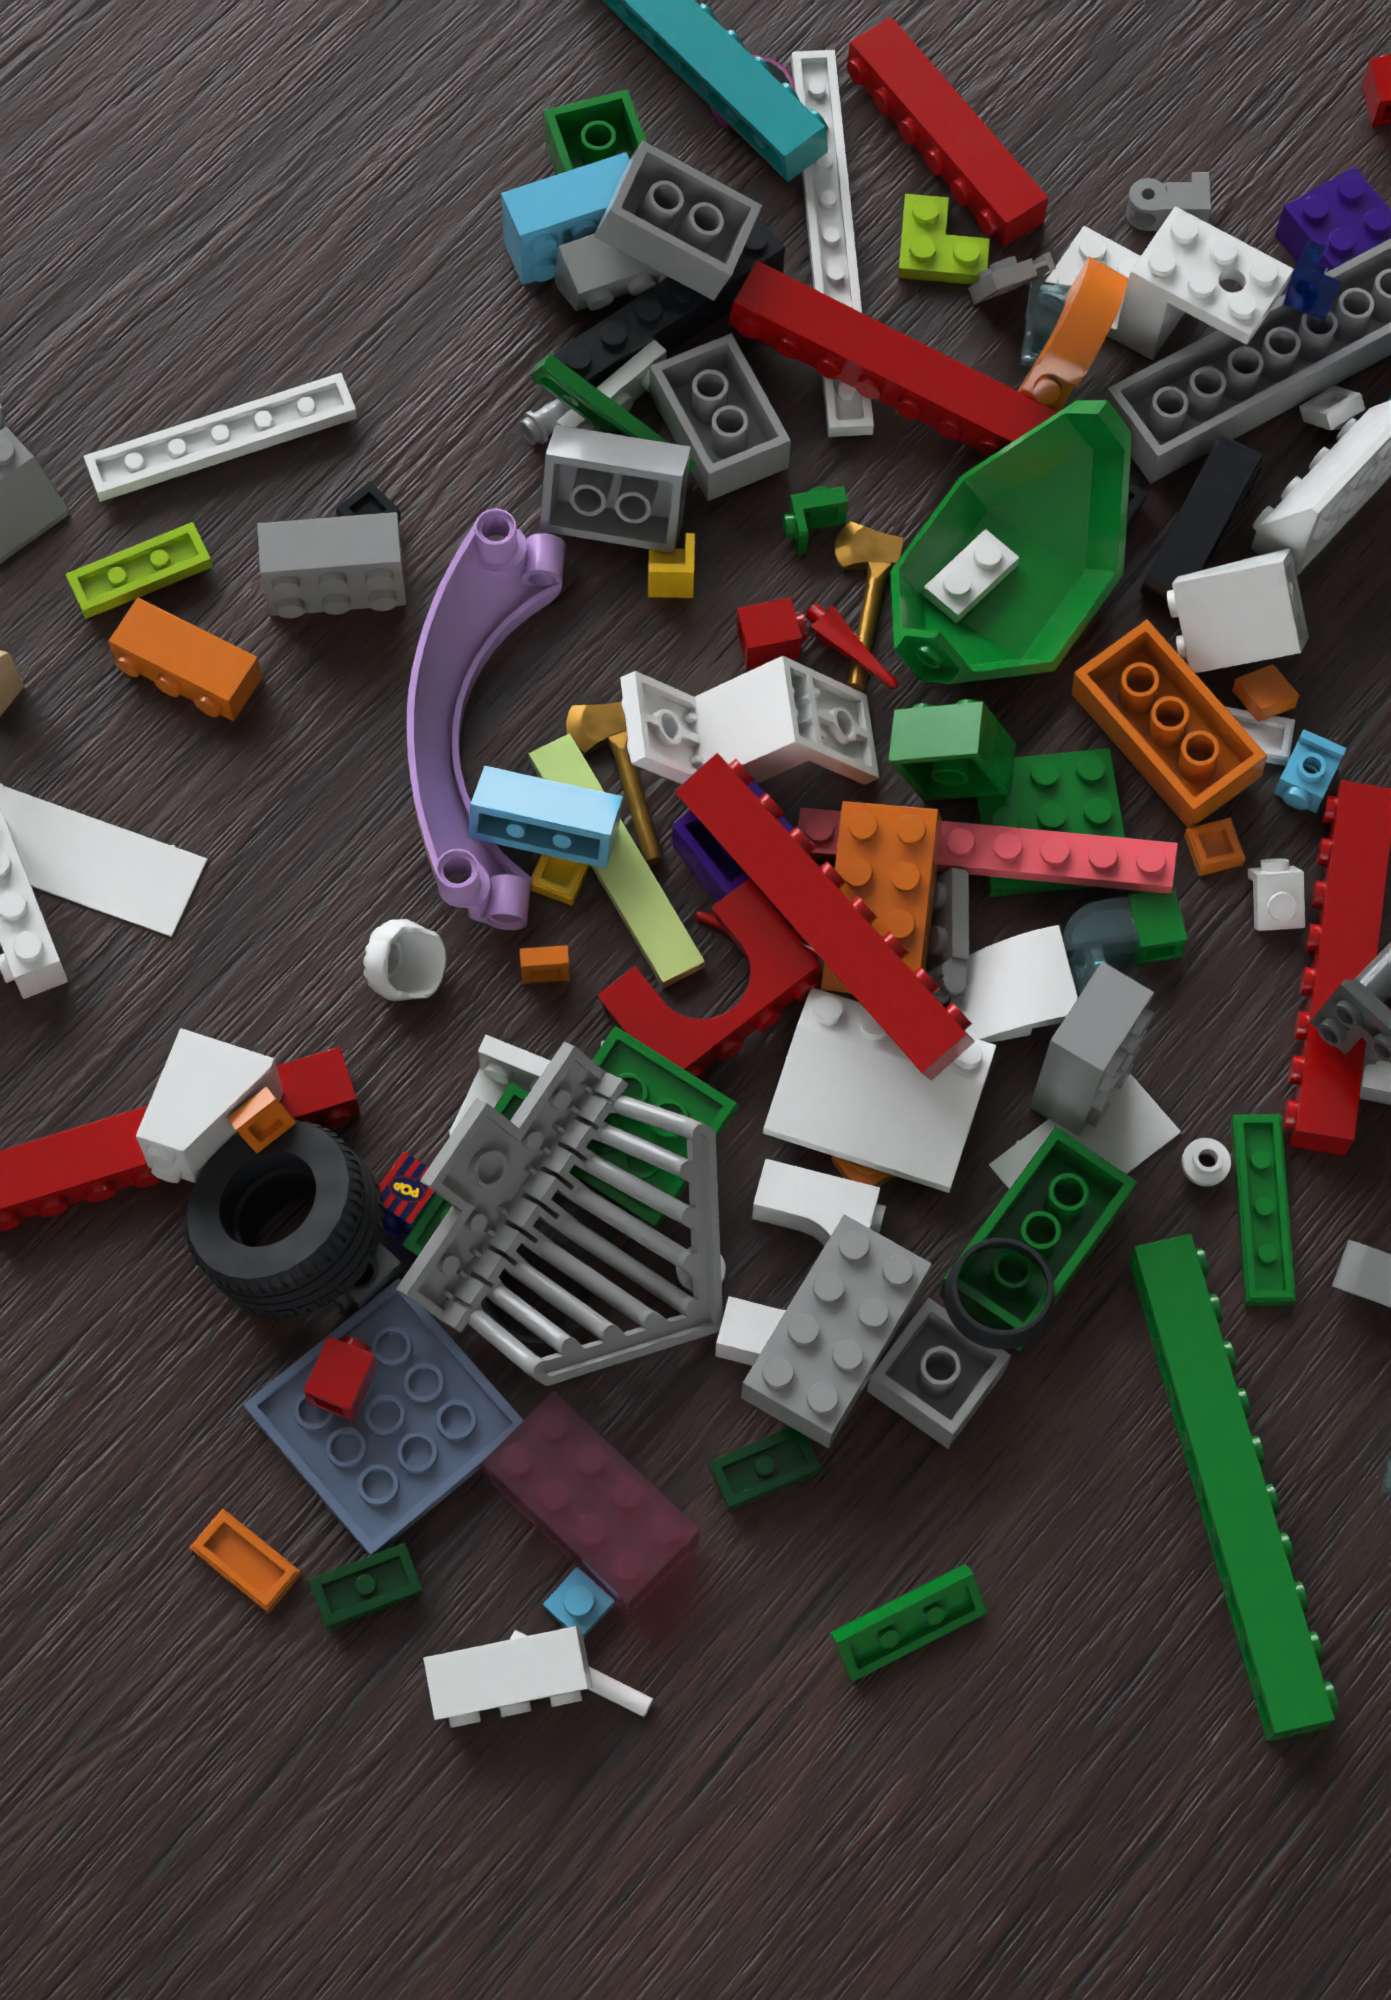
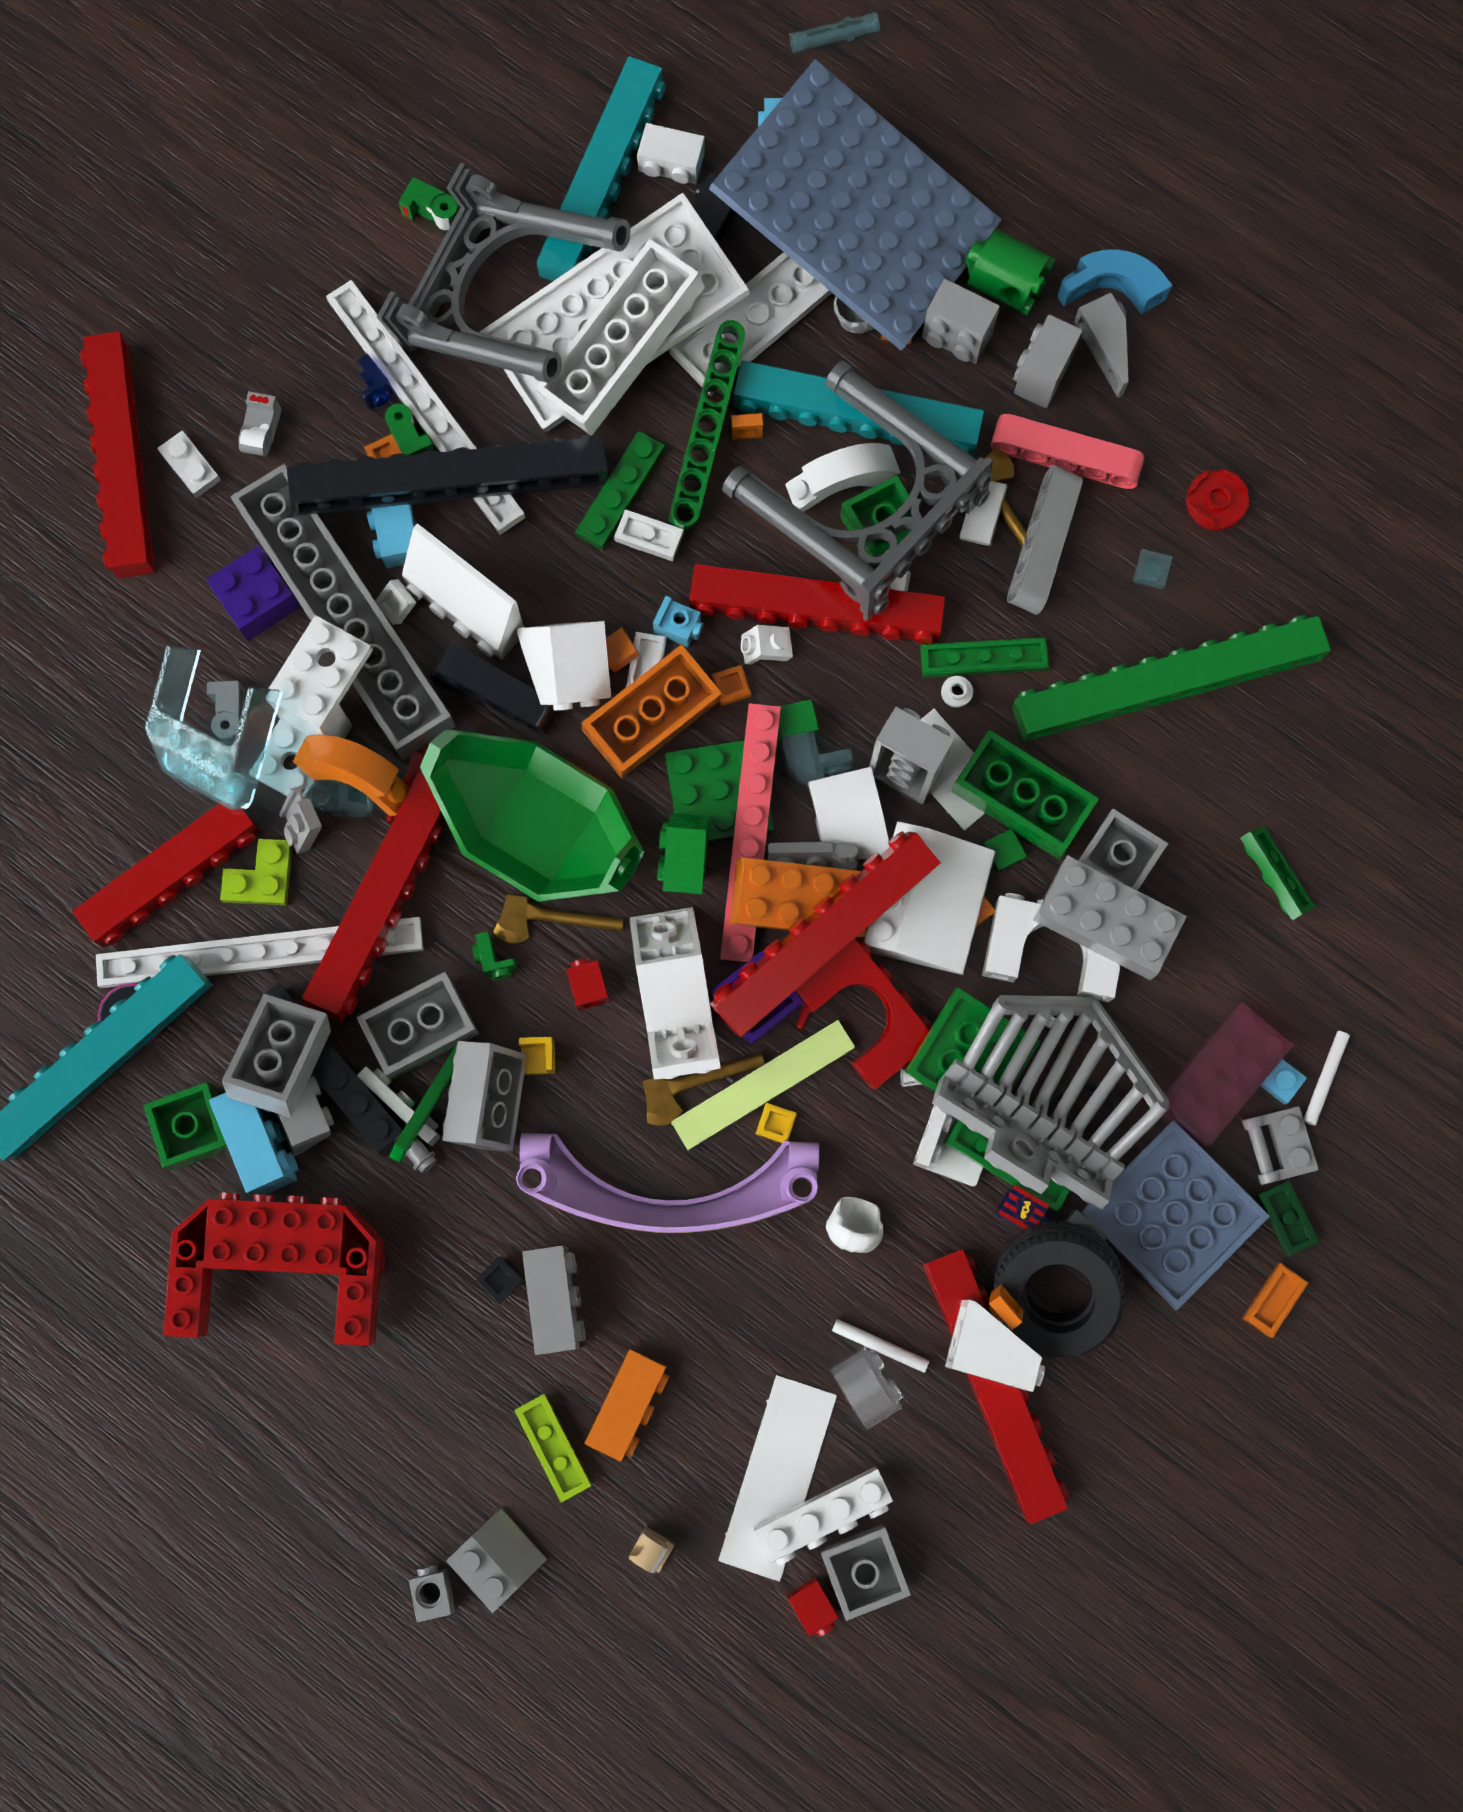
camera: 90 degrees left, 10 degrees up
(175, 954) = (866, 1387): none -> clear brick
(220, 437) = (439, 1397): white plate -> none
(239, 985) = (880, 1345): none -> white bar
(341, 1377) = (1161, 1242): red brick -> none
(438, 247) = (278, 1239): none -> red wedge
(480, 1606) = (1289, 1141): none -> light grey plate
(508, 1675) = (1340, 1120): white brick -> none
(544, 964) = (848, 1128): orange tile -> none
(545, 817) = (745, 1131): medium azure brick -> none
(763, 1467) = (1188, 968): dark green plate -> none
(836, 634) = (585, 938): red piece -> none
(954, 1215) = (1007, 850): none -> green tile
(970, 576) = (536, 847): white plate -> none
(984, 1335) = (1057, 838): black tyre -> none
(1086, 181) = (197, 759): none -> clear light blue windscreen
(1309, 287) = (315, 603): clear blue bracket -> none

